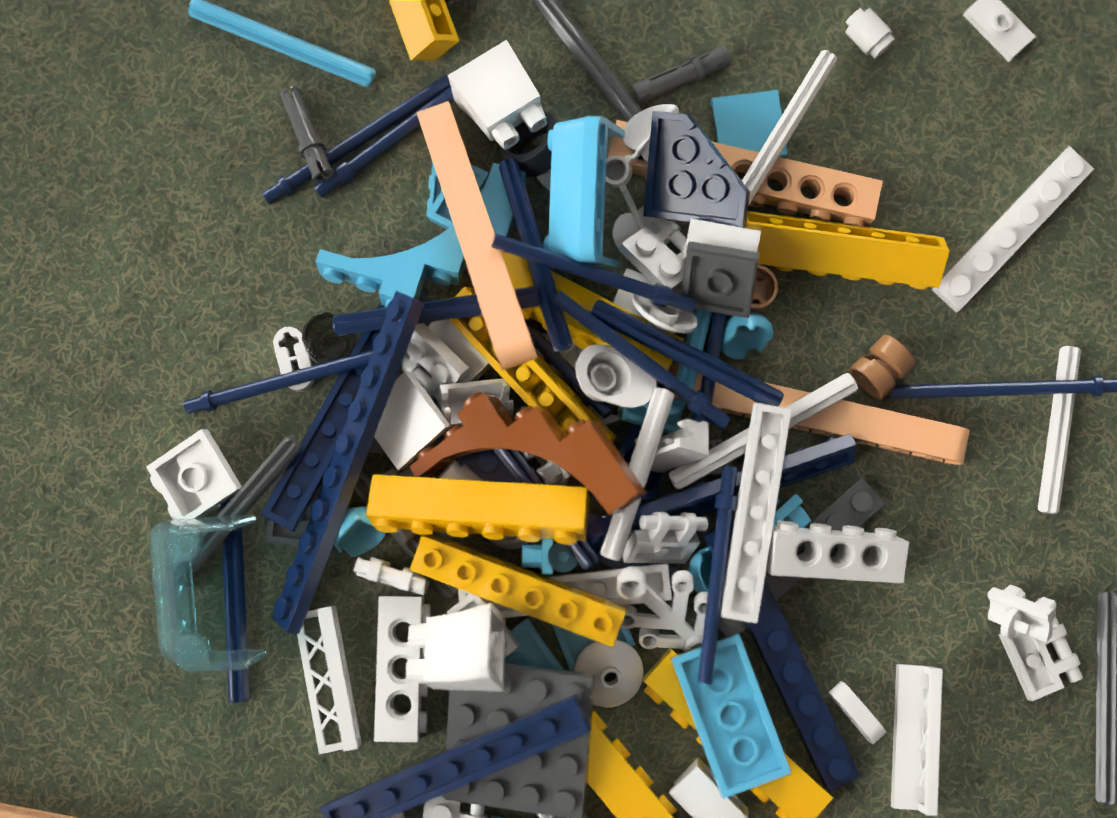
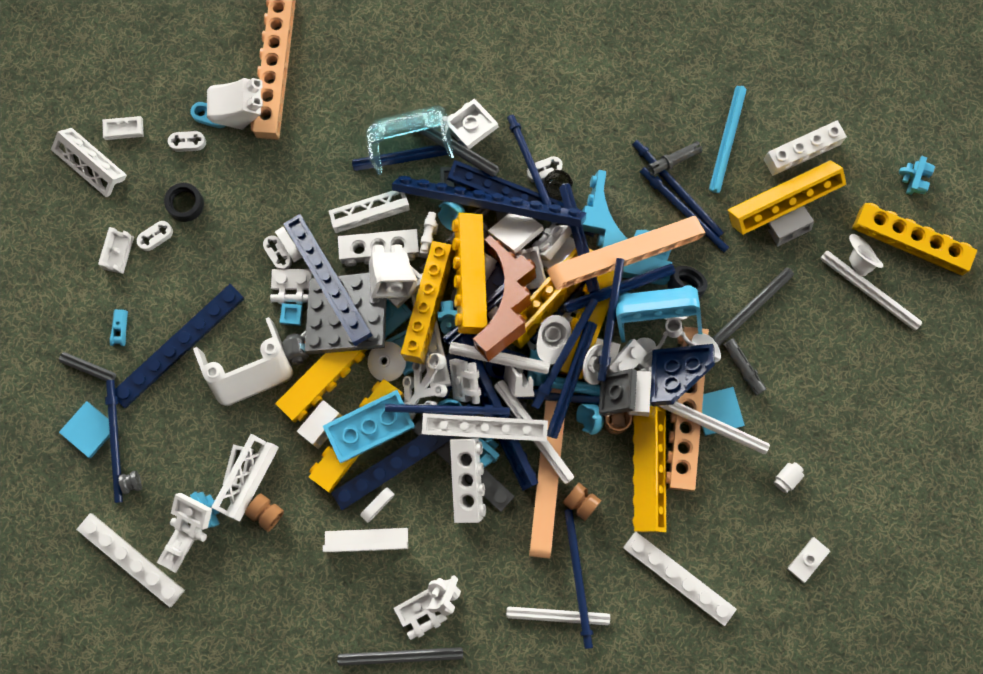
camera: 90 degrees right, 5 degrees down
(498, 95) = (711, 258): white hips -> none

